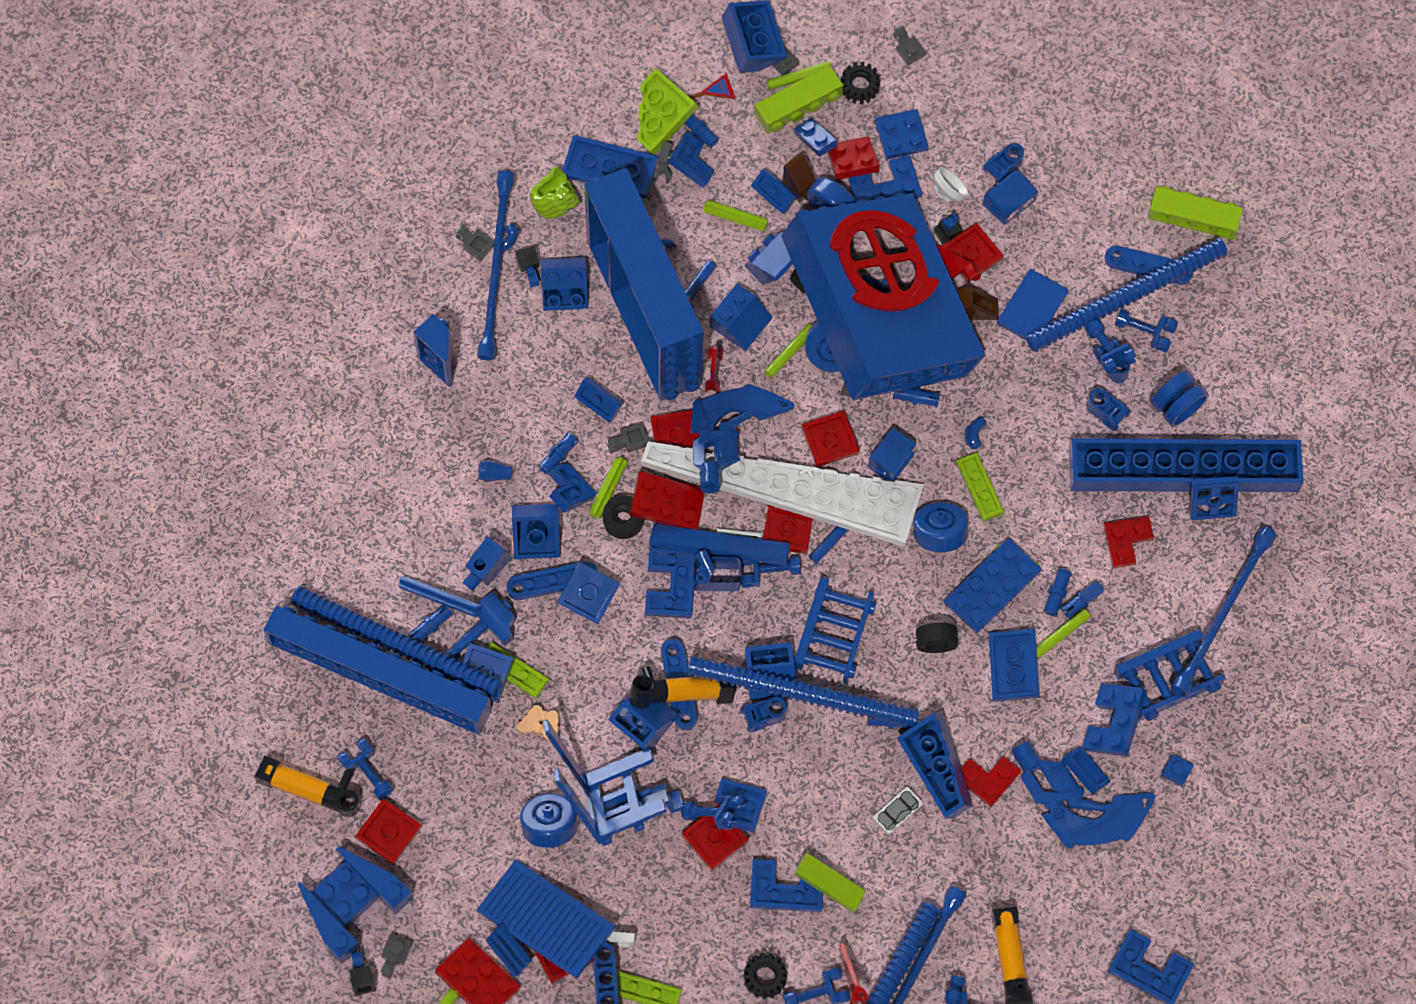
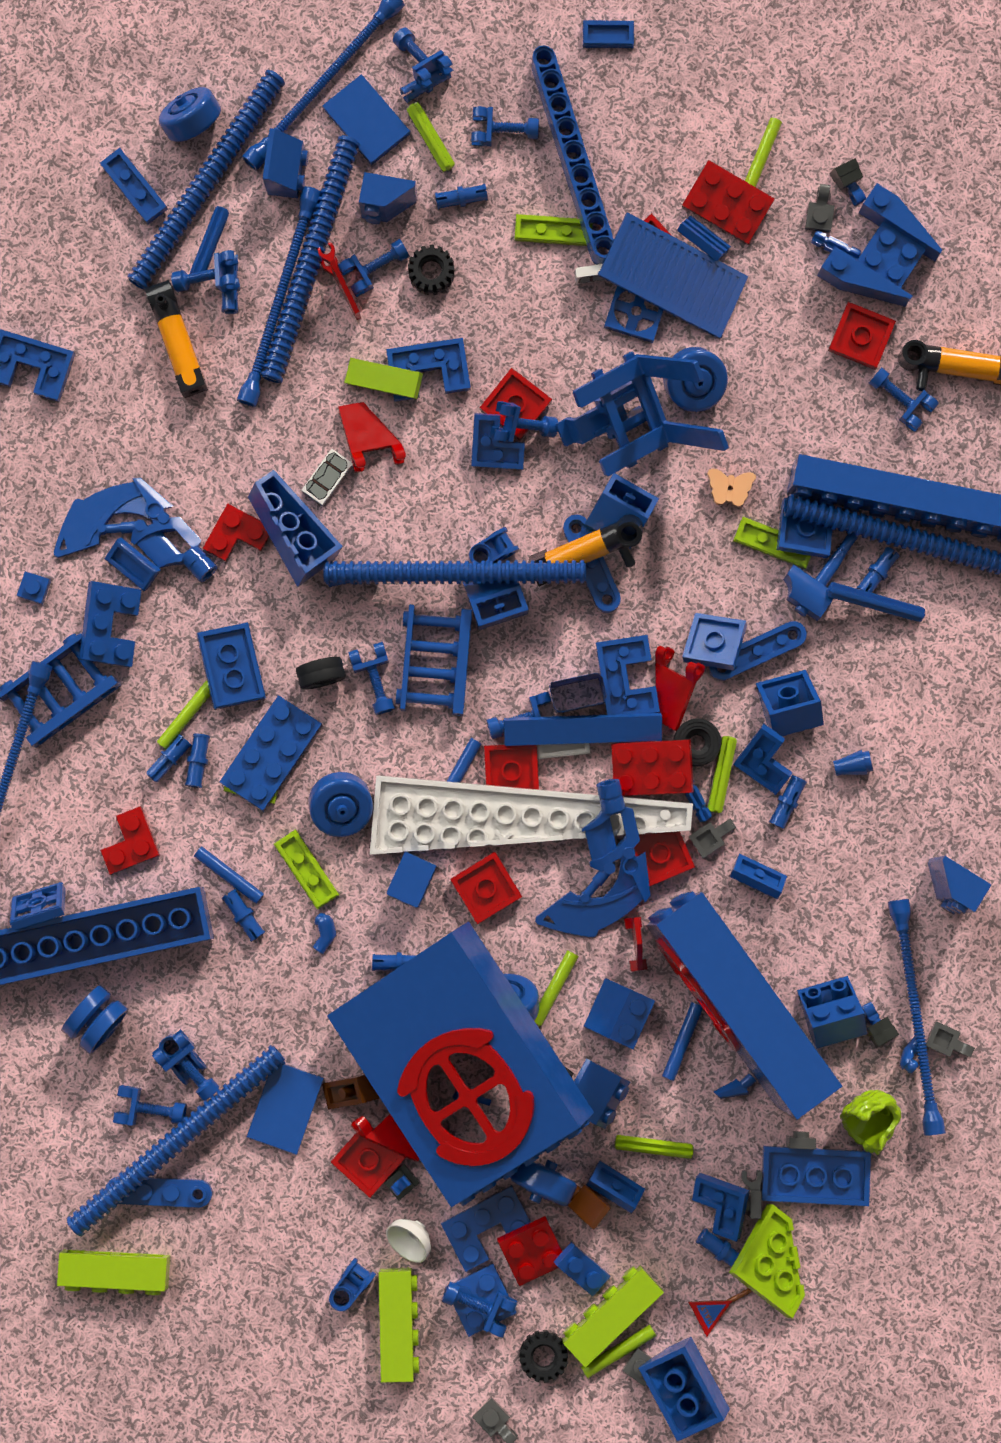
camera: 170 degrees right, 15 degrees up
(389, 918) = (820, 239): none -> blue axle
(488, 555) = (835, 650): blue torso -> none
(610, 892) = (624, 307): none -> blue piece
(633, 466) = (703, 813): none -> blue axle
(634, 562) = (673, 688): none -> red flag
(705, 569) = (591, 688): blue arm -> none
(854, 840) = (367, 433): none -> red flag
(887, 604) = (382, 703): none -> blue bar
(894, 107) = (453, 1294): none -> blue bar
(973, 128) = (396, 1325): none -> lime brick
(1008, 196) = (335, 1241): blue piece -> none
(1040, 460) = (243, 915): none -> blue pin
(1051, 500) = (228, 875): none -> blue piece
(1107, 410) = (173, 993): blue piece -> none

